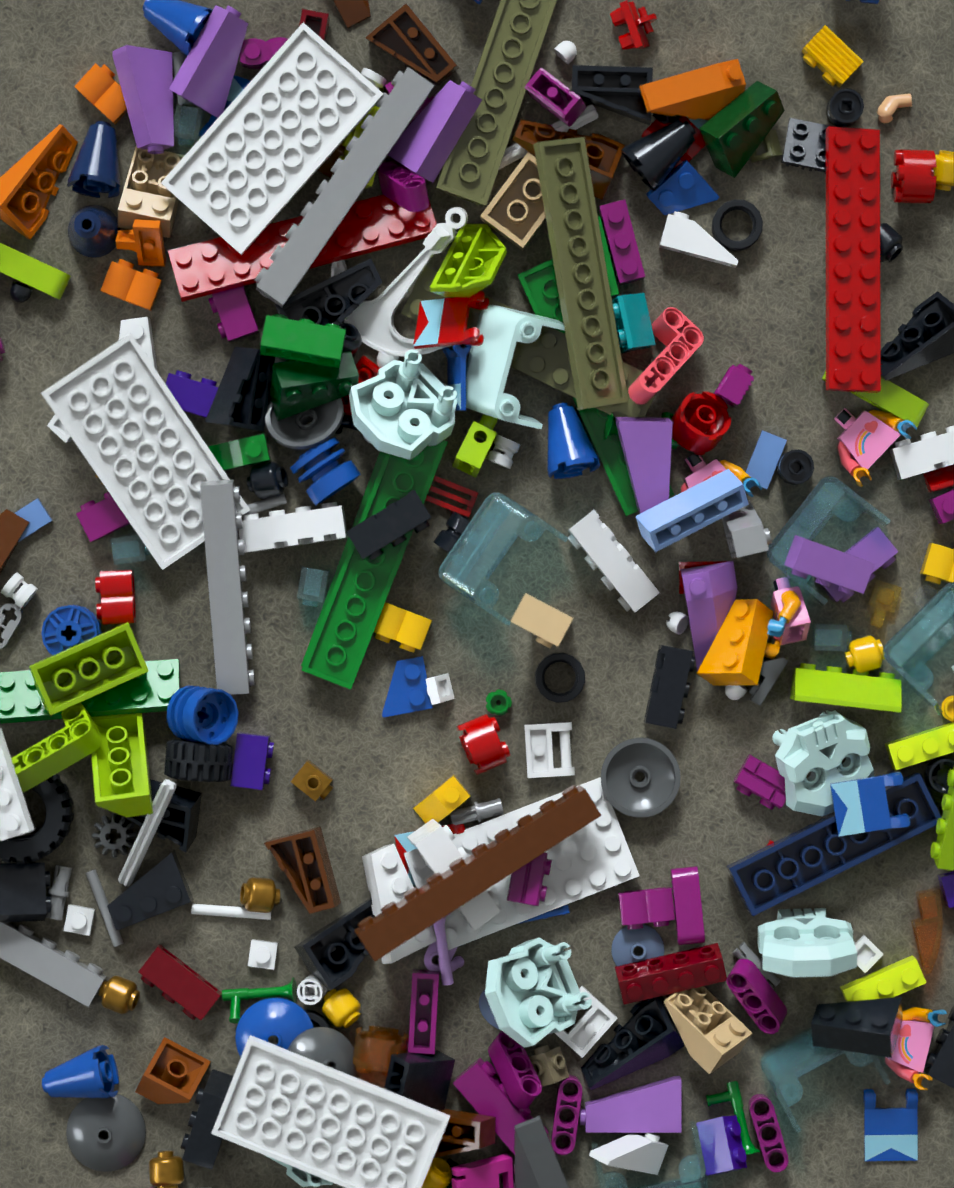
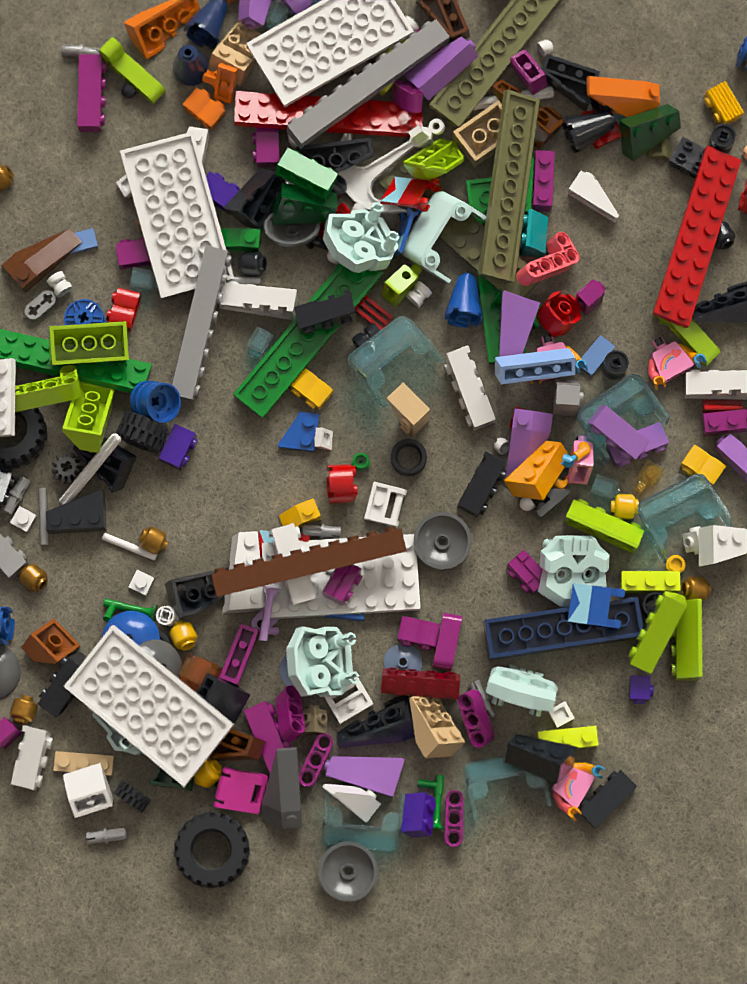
camera: 15 degrees right, 10 degrees down
(179, 983) = (77, 583): dark red brick -> none
(308, 868) = (192, 529): reddish brown wedge -> none
(313, 781) = (215, 474): pearl gold brick -> none
(325, 471) = (293, 267): blue wheel -> none
(628, 14) = (598, 41): red hips -> none
(682, 190) = (595, 159): blue wing -> none
(729, 206) = (630, 181): black tyre -> none
(890, 1132) = (541, 847): blue flag -> none
(928, 927) = (611, 709): clear orange slope -> none

